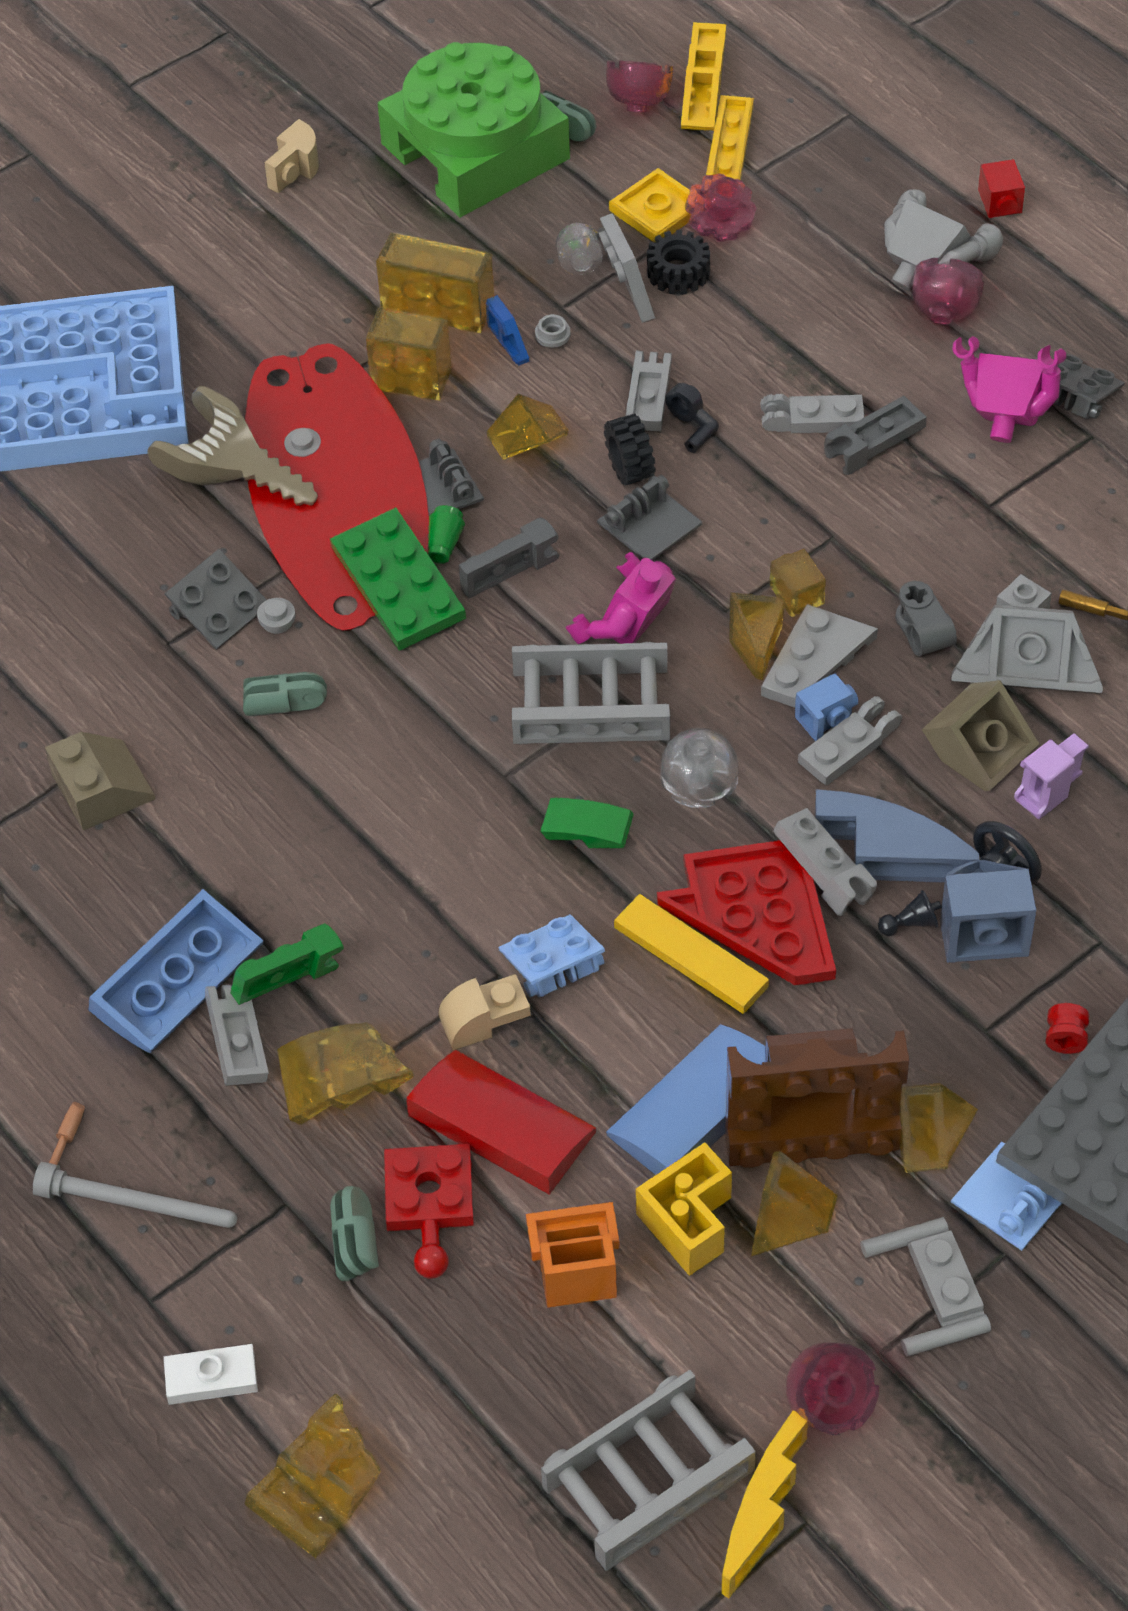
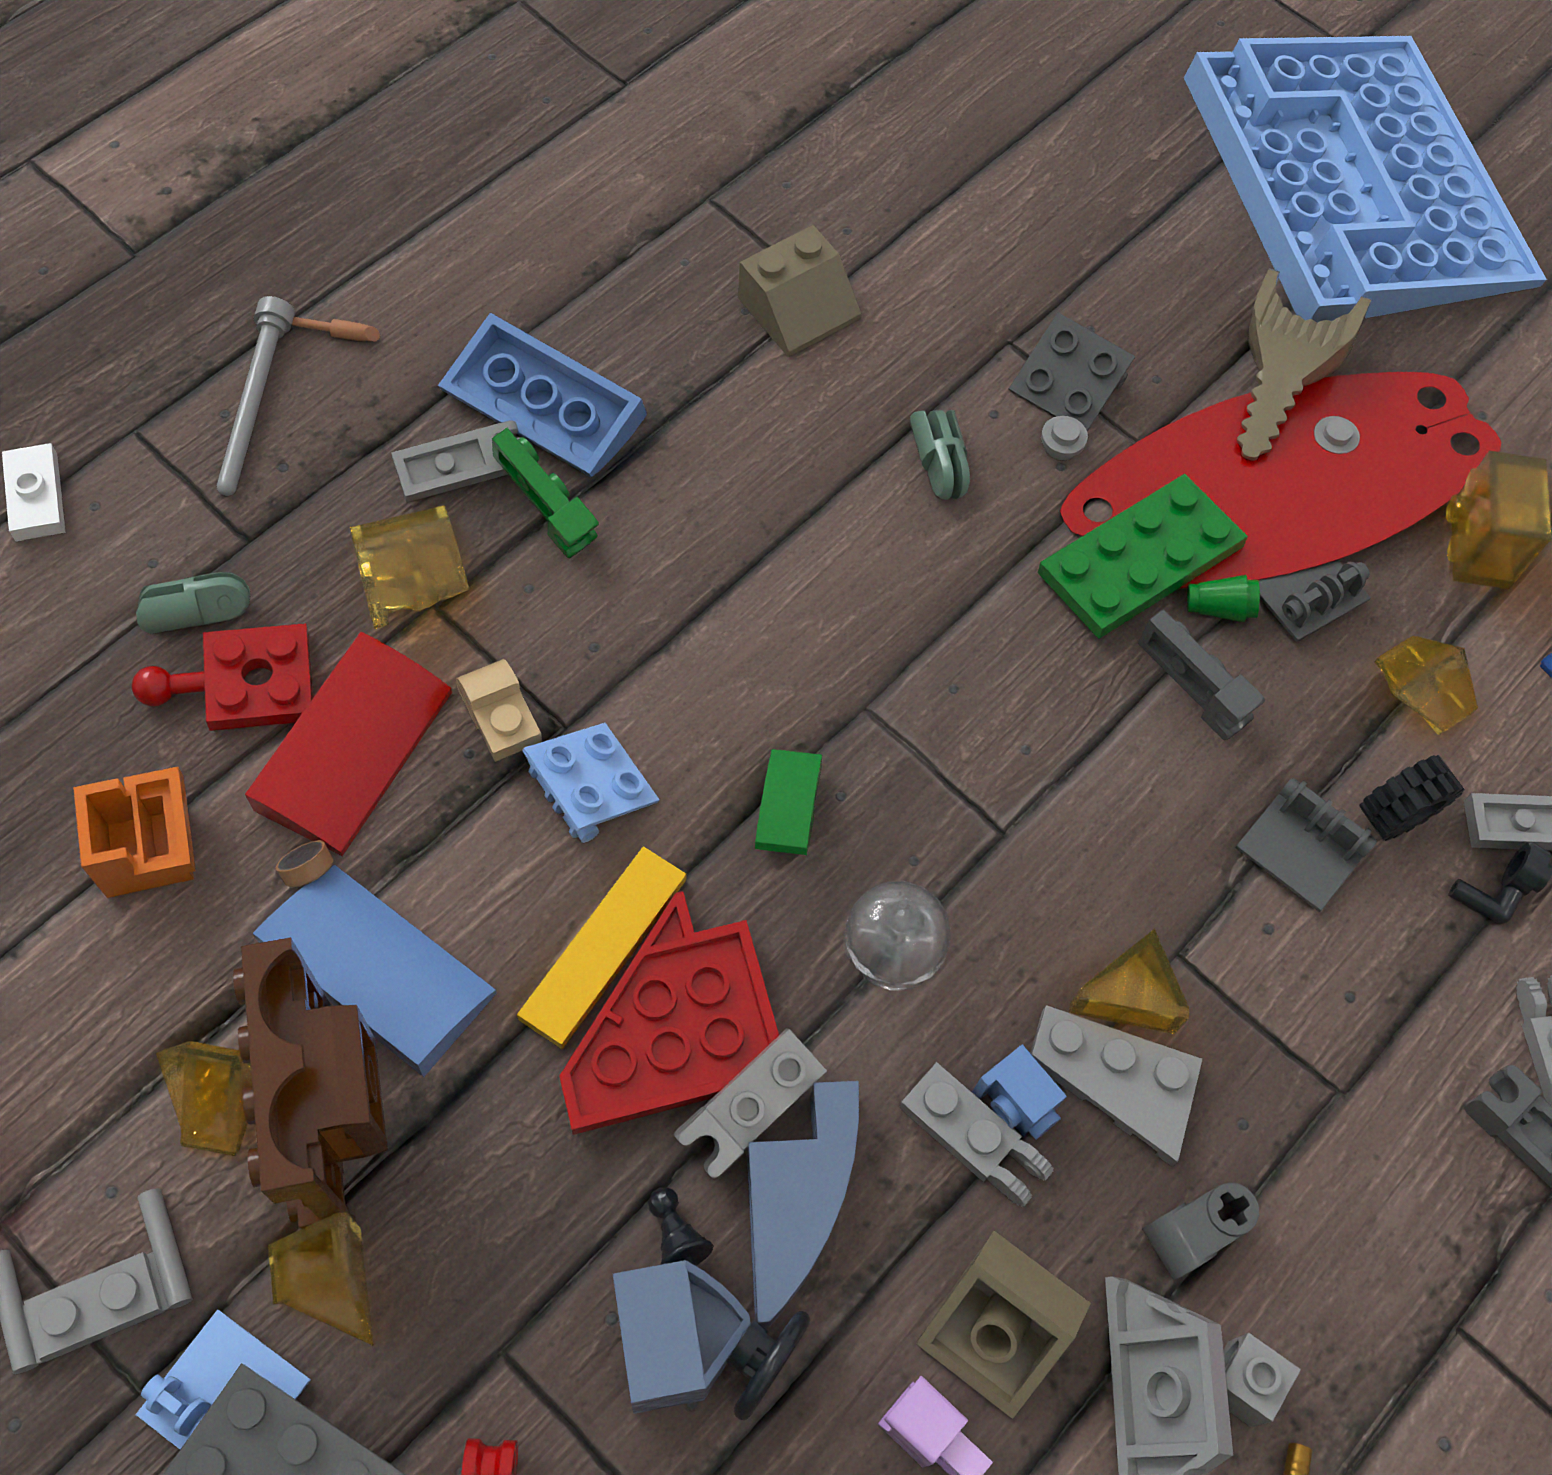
camera: 75 degrees right, 10 degrees up
(590, 723) = (958, 816): light grey fence -> none
(607, 1144) = (305, 864): none -> medium nougat tile
(633, 604) = (1153, 826): dark pink torso -> none
(680, 1207) = (178, 951): yellow brick -> none
(798, 581) = (1236, 1041): clear yellow brick -> none

